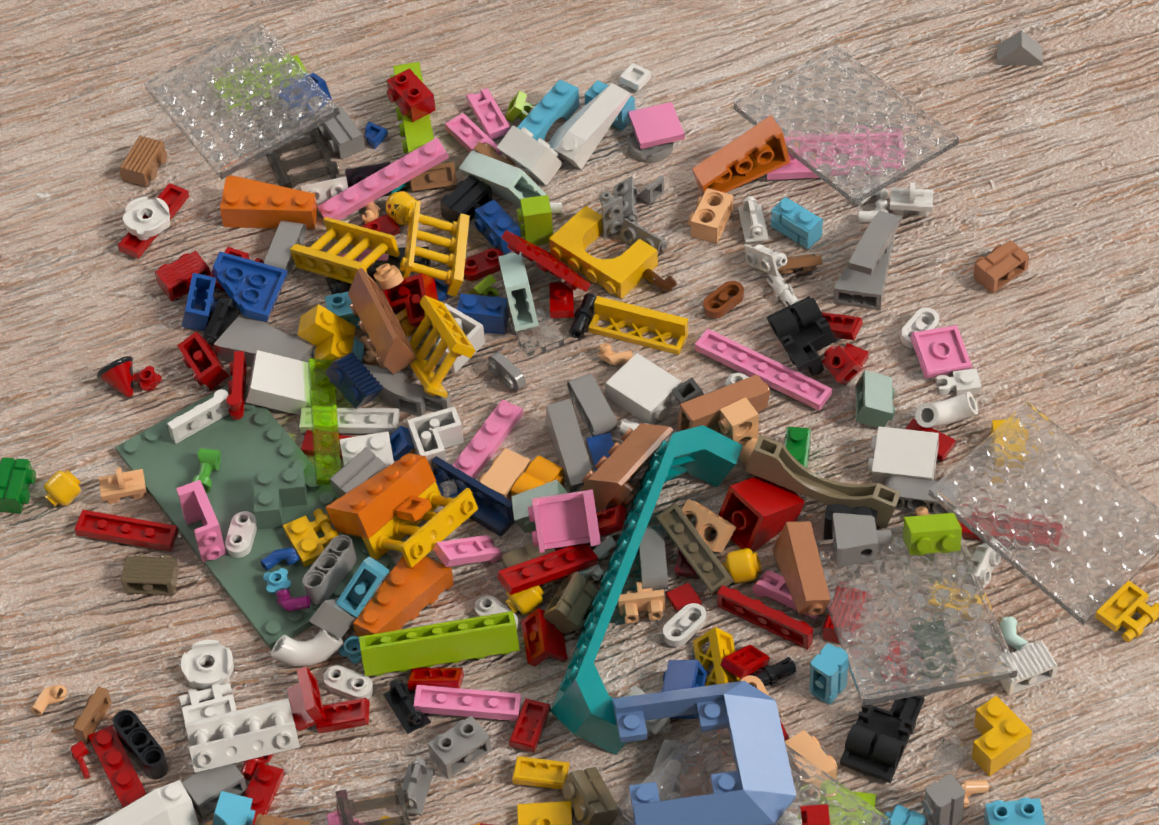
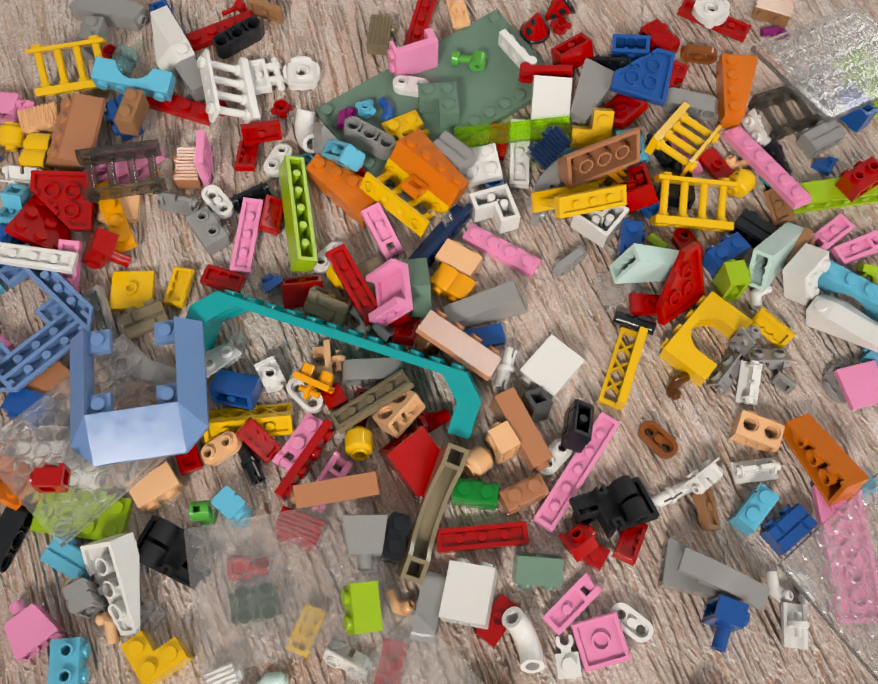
camera: 85 degrees right, 15 degrees up
(152, 406) = (535, 30): none -> red hat
(176, 162) = (771, 31): none -> magenta arm
(209, 234) = (698, 54): none -> dark orange plate
(265, 679) = (281, 104): none -> red plate
(289, 309) = (625, 110): none -> red plate
(352, 754) = (203, 157): none -> bright pink tile
(361, 778) = (185, 172): none -> nougat brick
(388, 276) = (652, 164): light nougat plate -> none
(411, 742) = (219, 202): none -> white plate
(536, 670) = (269, 281): none -> blue plate
(589, 193) = (772, 328): none -> yellow plate
(592, 405) = (534, 327): light grey beam -> none
(613, 358) = (589, 346): light nougat arm -> none
(649, 216) = (748, 382): none -> white hinge
(656, 659) = (267, 367): none -> white brick
(683, 608) = (324, 382): none -> light orange hips
(709, 497) = (433, 419): none -> red cone
(715, 360) = (577, 426): none -> black brick
(743, 628) = (297, 441): none -> bright pink plate
(792, 409) = (523, 494): none -> nougat brick
(815, 196) = (788, 528): none -> blue brick
(836, 698) = (202, 512): none -> bright green leg
(841, 446) = (482, 537): none -> red plate
(903, 774) = (117, 571): none -> white wedge
(906, 375) = (571, 604): none -> bright pink plate
(909, 248) = (726, 616): none -> blue brick

